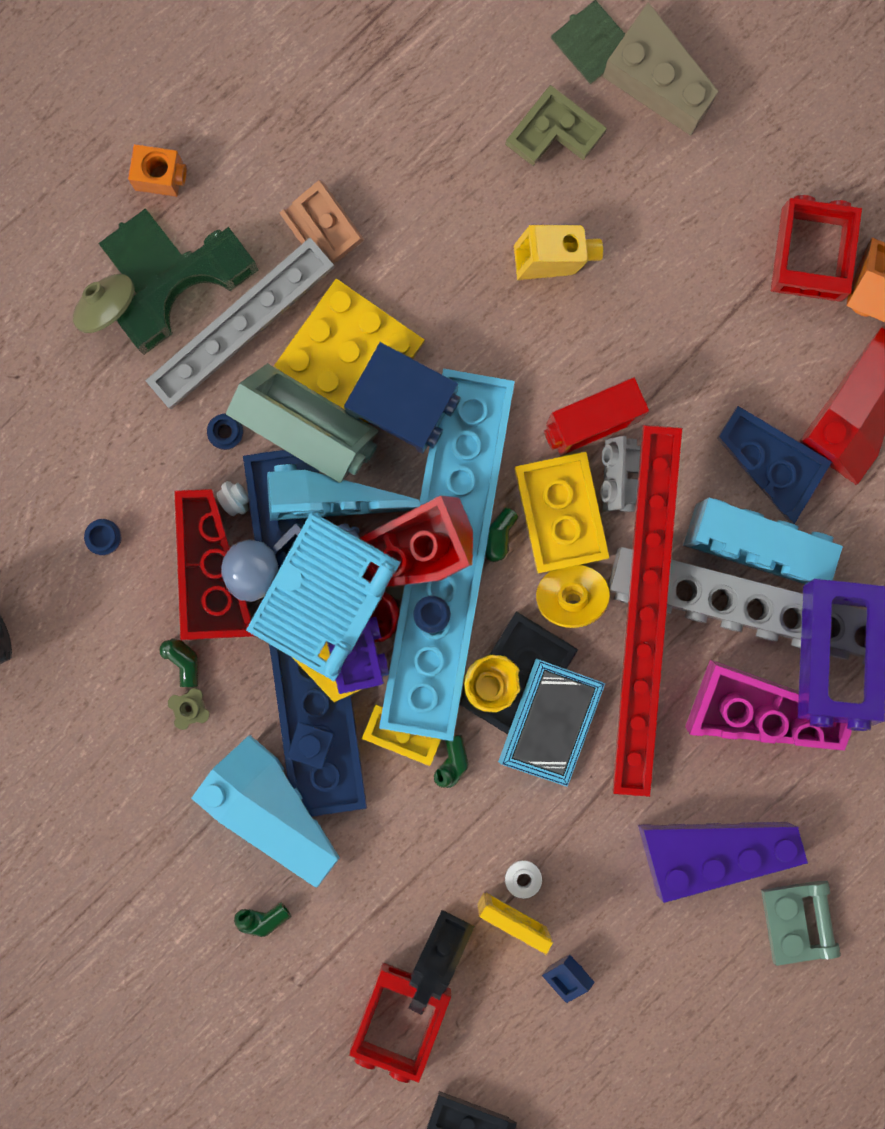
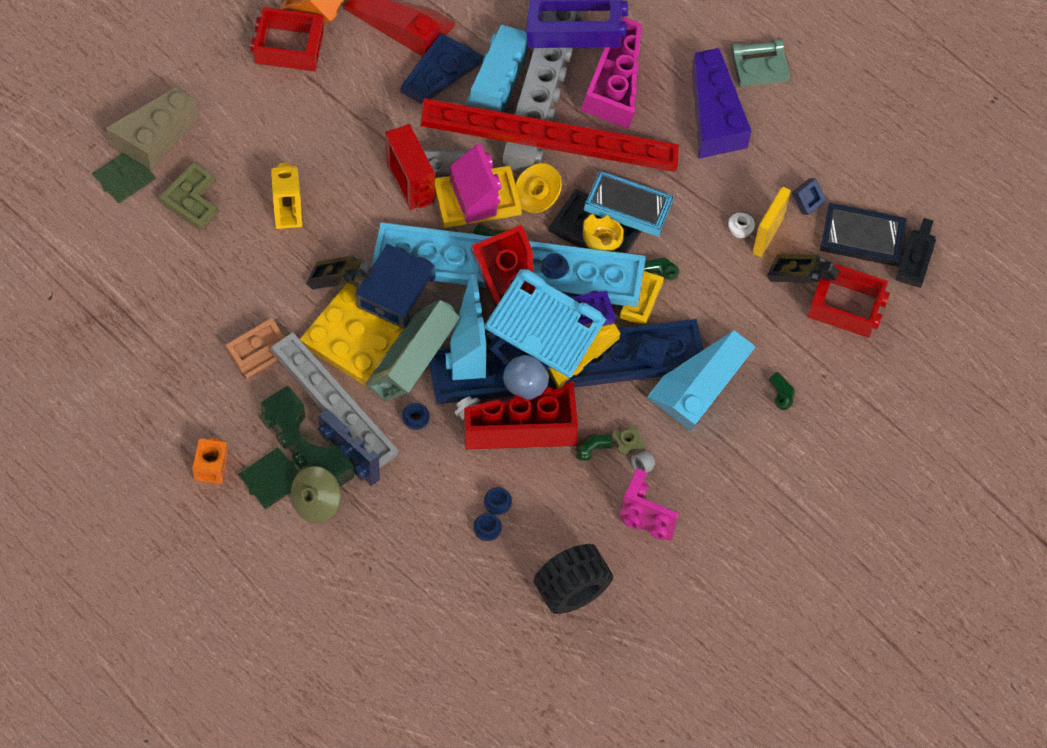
camera: 90 degrees left, 25 degrees down
(65, 715) = (644, 514): none -> dark pink bracket
(66, 523) = (487, 527): none -> dark blue plate
(155, 353) = (365, 464): none -> dark blue wing
(155, 729) = (643, 461): none -> light grey hinge
(426, 322) = (338, 272): none -> black hinge
(512, 1051) = (863, 234): none -> tile
(559, 504) = (475, 185): none -> dark pink slope

